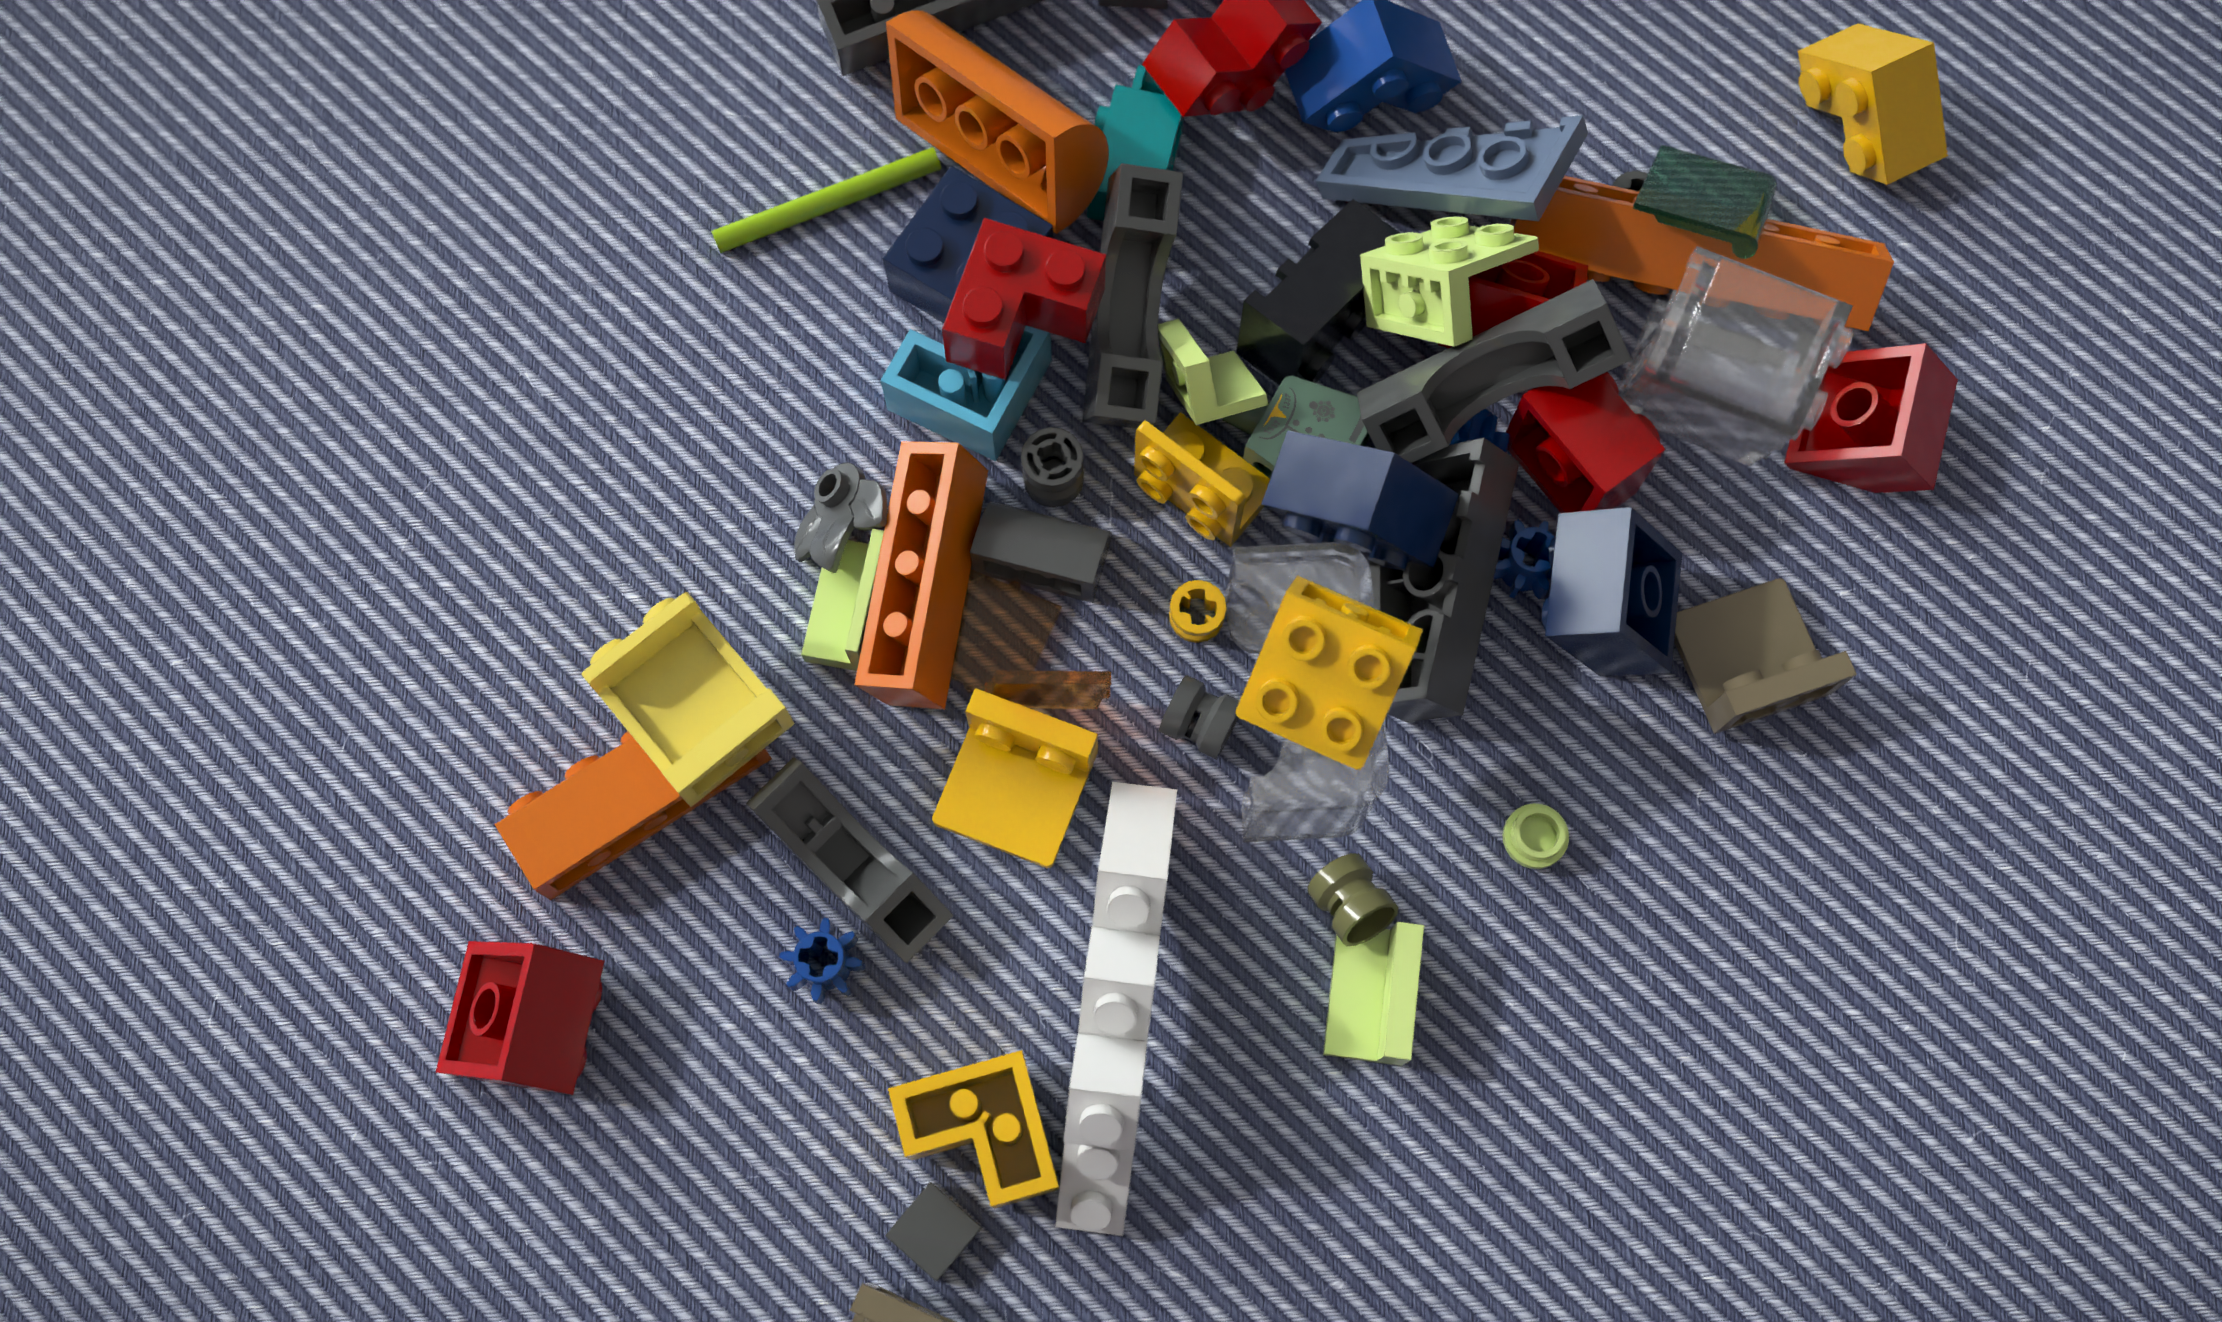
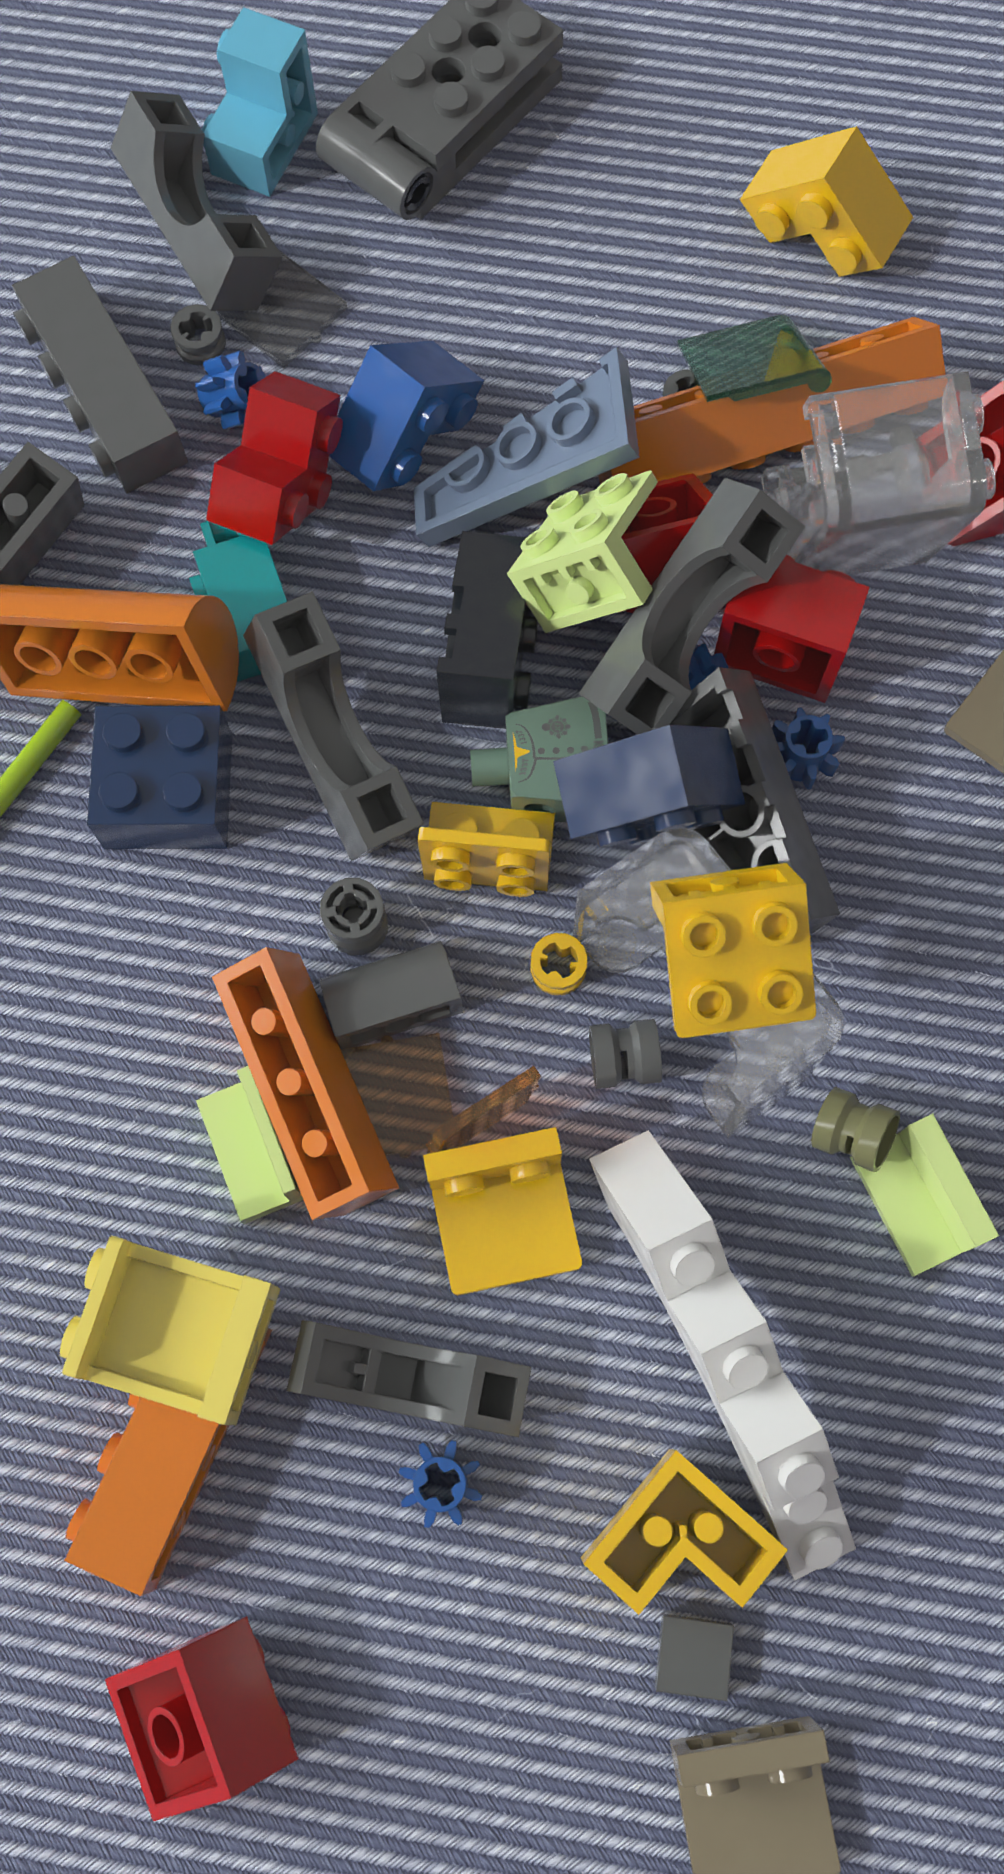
camera: 30 degrees left, 0 degrees up
(840, 504) = (190, 1068): dark grey plate -> none
(959, 401) = (243, 898): medium azure brick -> none
(1017, 283) = (227, 773): red brick -> none
(1204, 385) = (443, 762): yellowish green panel -> none
(1535, 836) = (962, 977): yellowish green plate -> none
(1613, 592) = (896, 733): dark blue brick -> none

